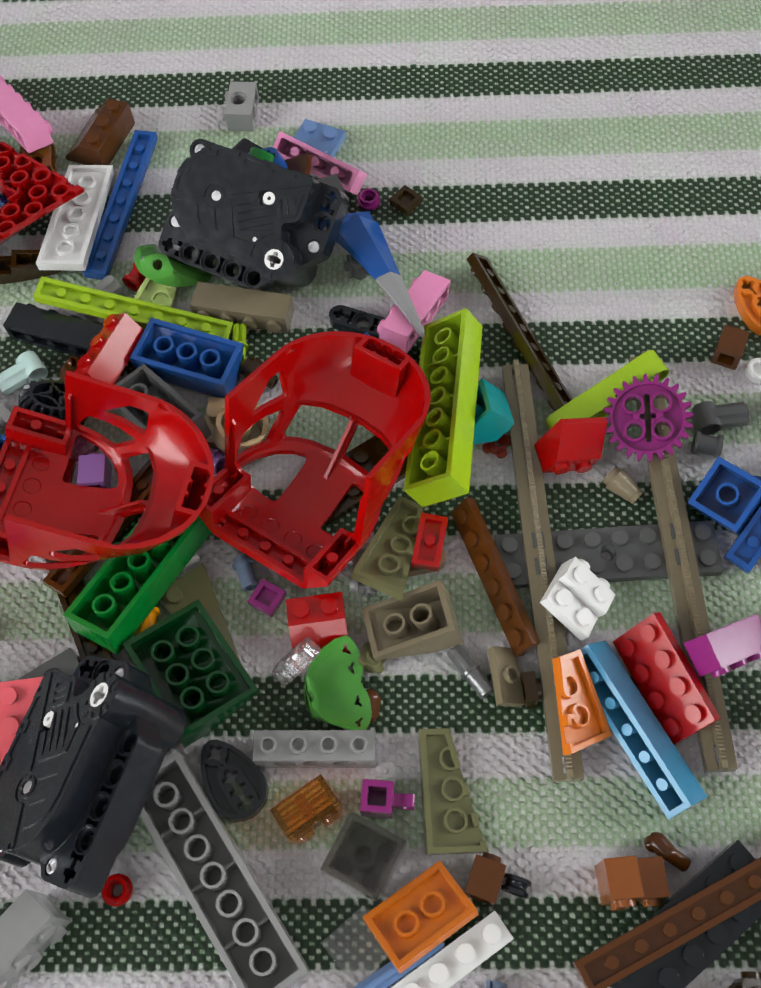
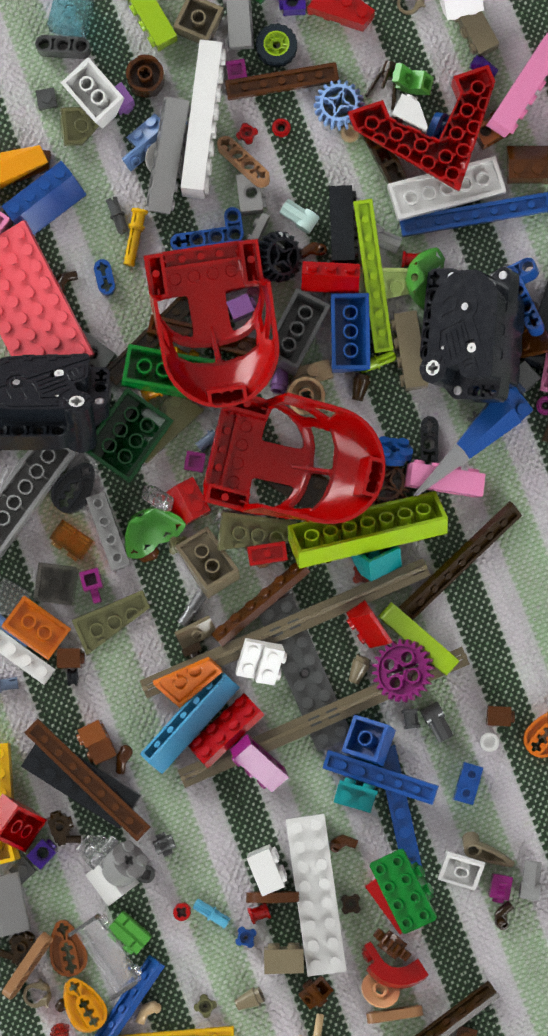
camera: 70 degrees right, 20 degrees up
(261, 154) = (513, 323): green tile -> none

